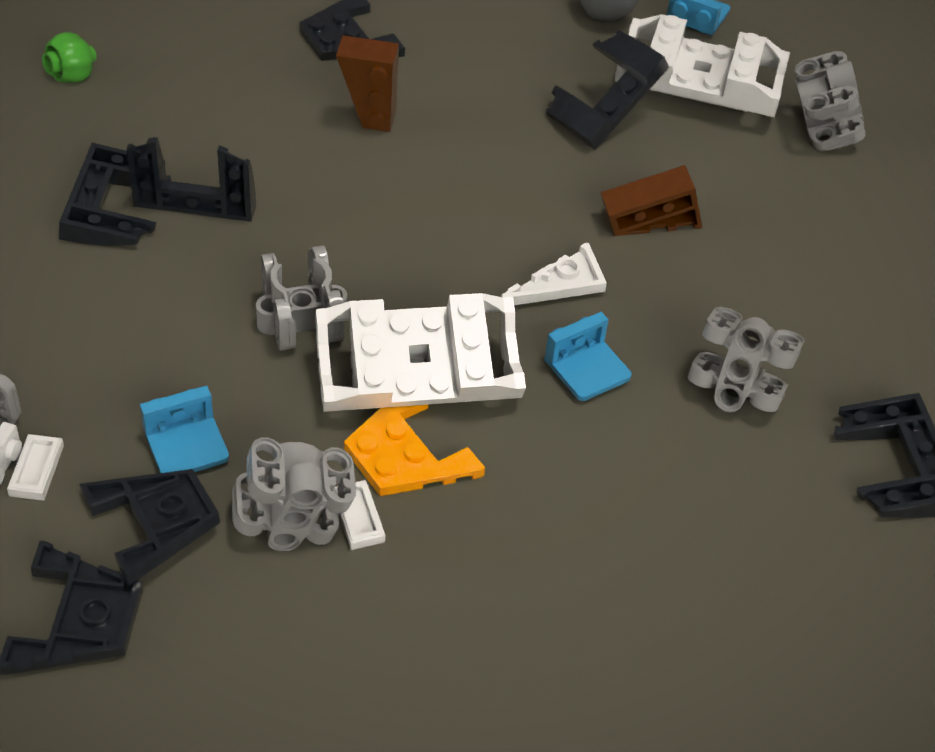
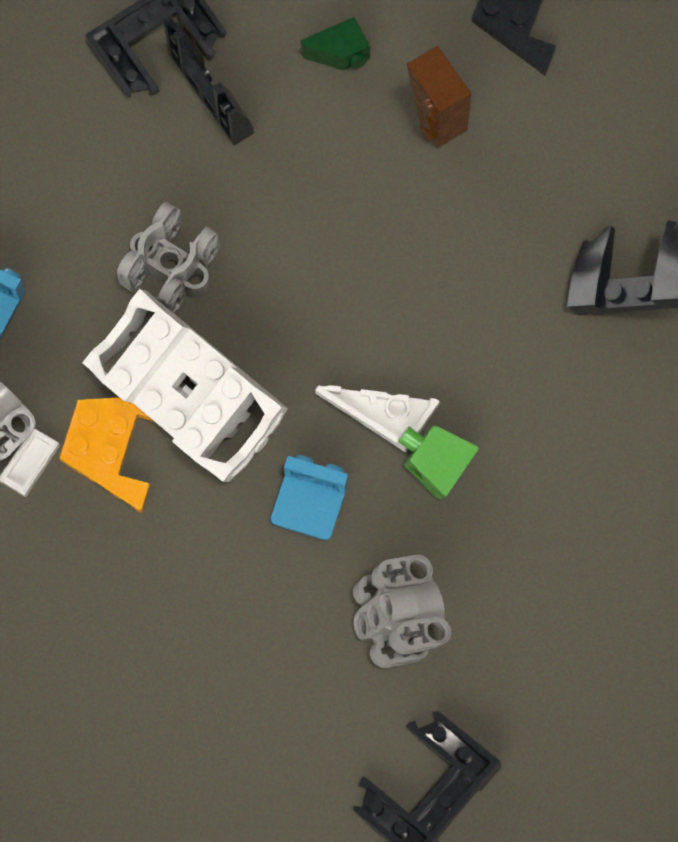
camera: 55 degrees right, 25 degrees up
(255, 117) = (338, 46): none -> dark green slope
(634, 271) = (437, 458): none -> bright green torso
(653, 202) = (533, 413): reddish brown wedge -> none

